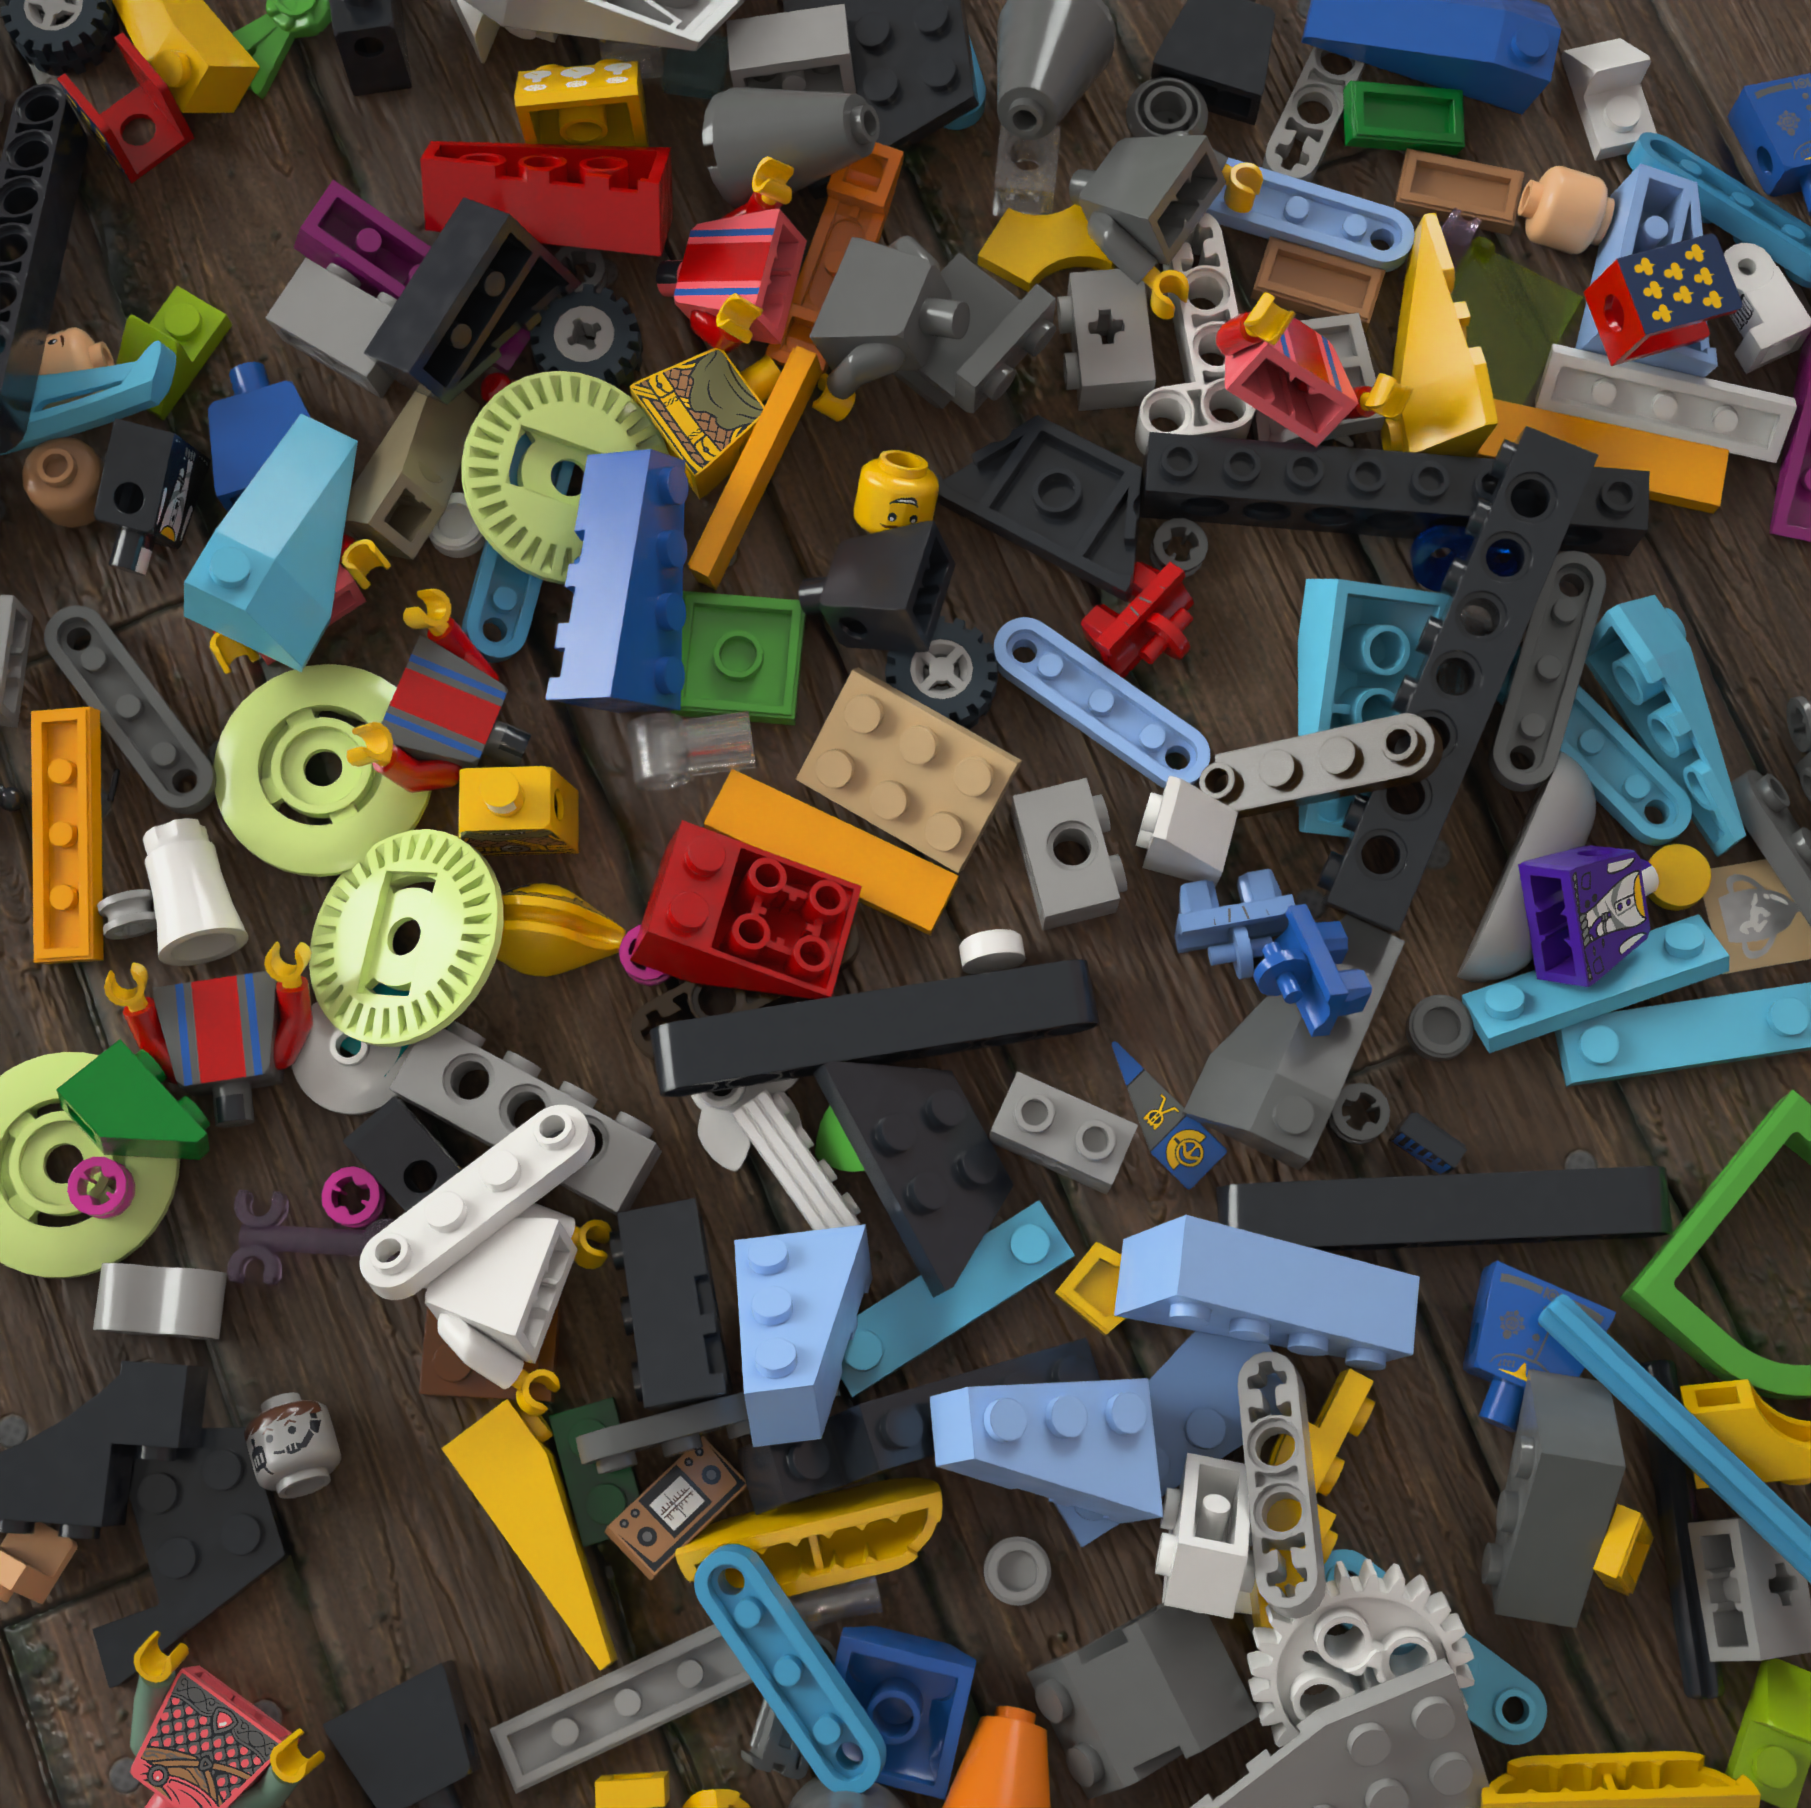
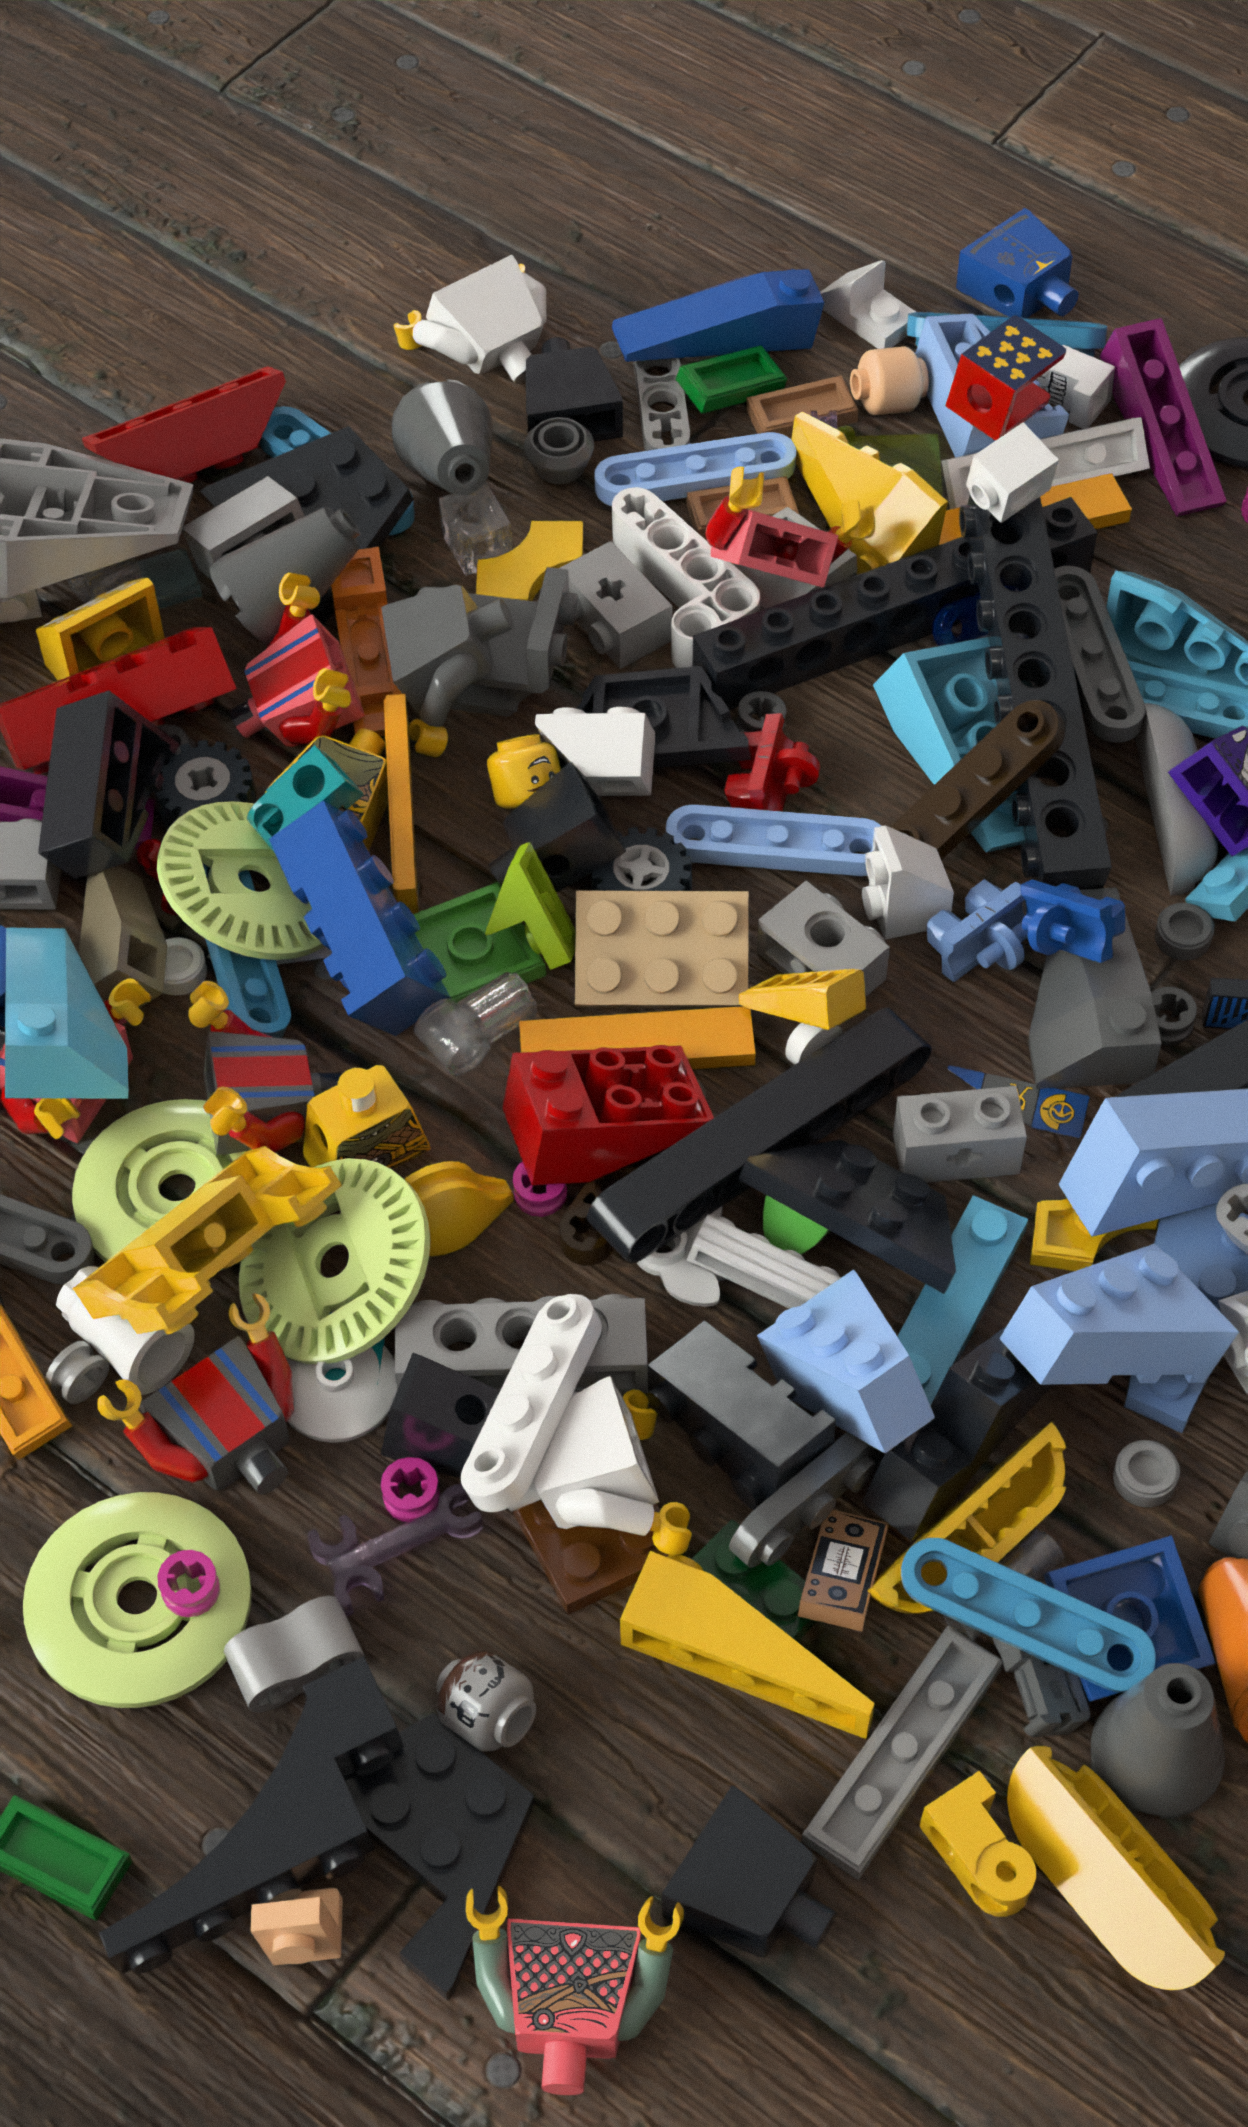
camera: 30 degrees left, 20 degrees down
(129, 1110) = (182, 1504): green slope -> none
(283, 858) = (170, 1264): none -> yellow bracket
(655, 419) = (299, 789): none -> teal leg
(809, 660) = (532, 898): none -> lime slope
(978, 522) = (607, 748): none -> white slope
(1006, 938) = (810, 997): none -> yellow slope
(1151, 200) = (591, 494): dark grey torso -> none
(1564, 444) = (1011, 473): none -> white brick

